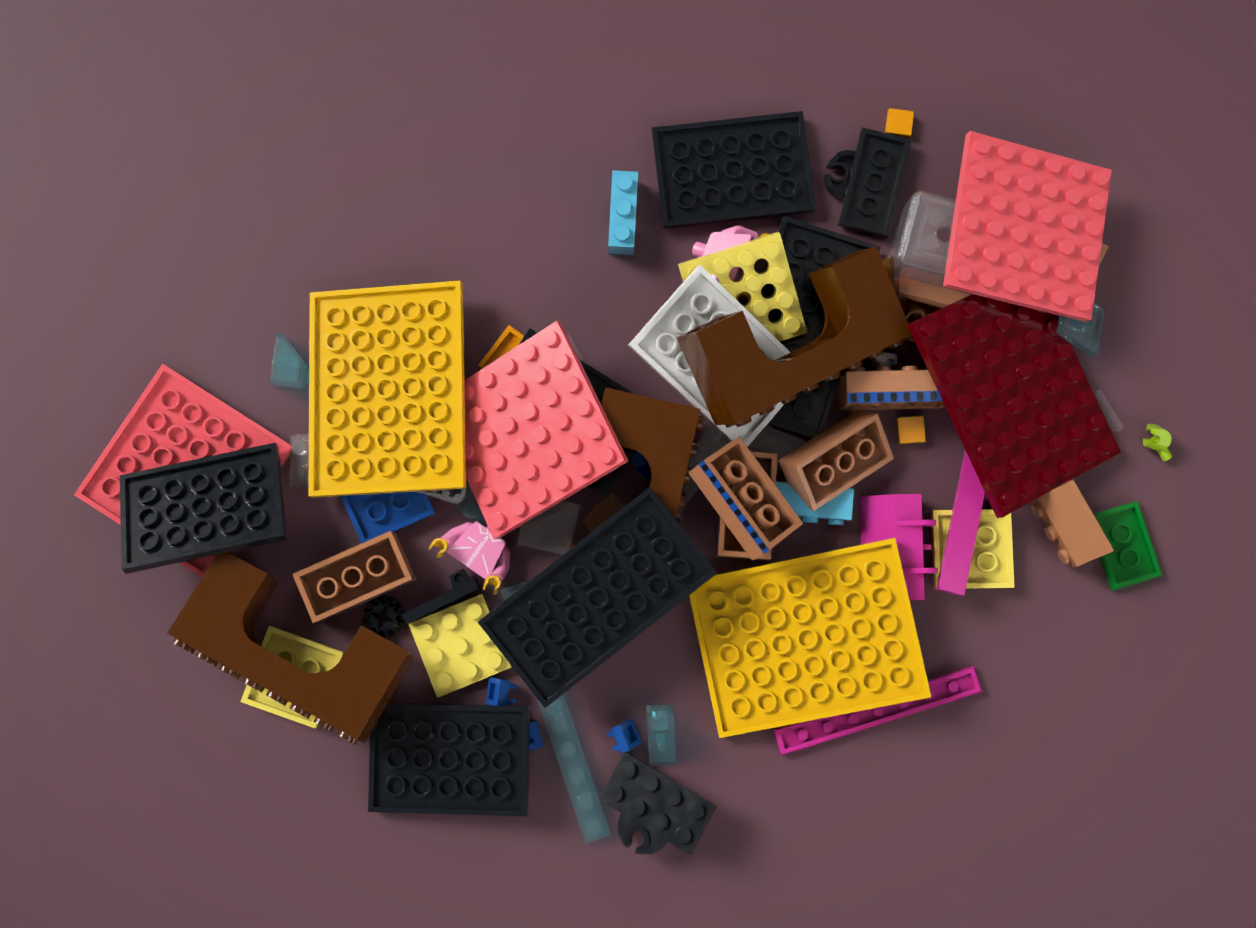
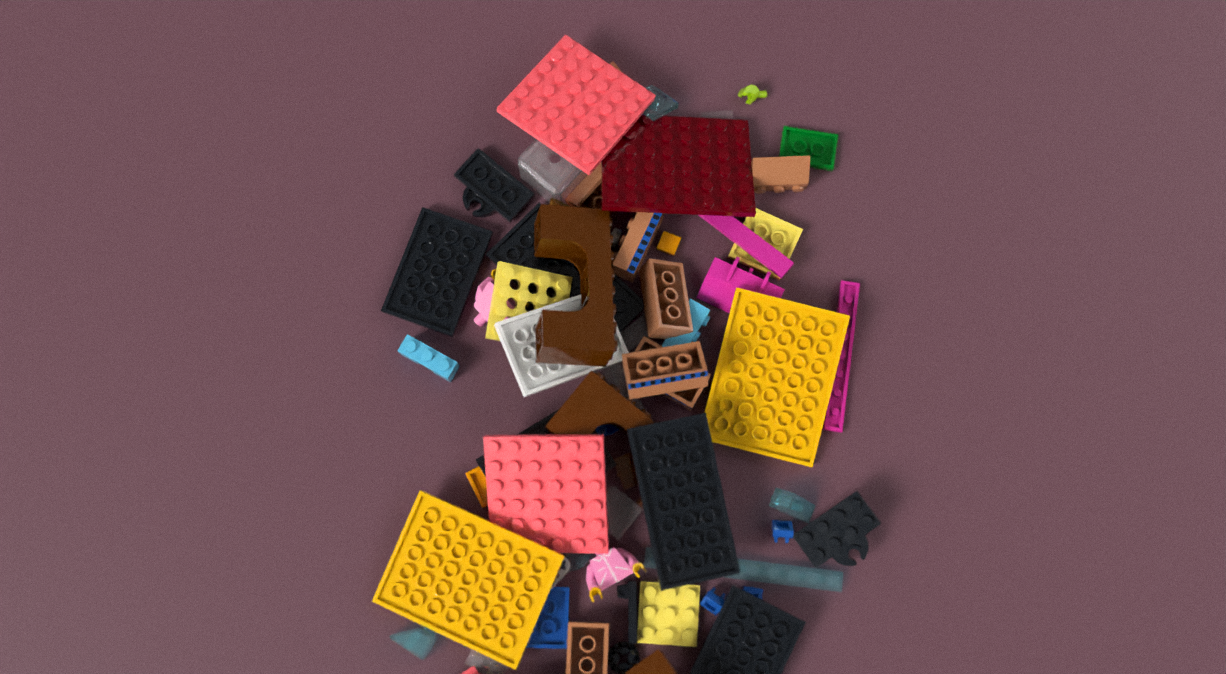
camera: 60 degrees left, 5 degrees down
(899, 122) = (462, 149): light orange tile -> none

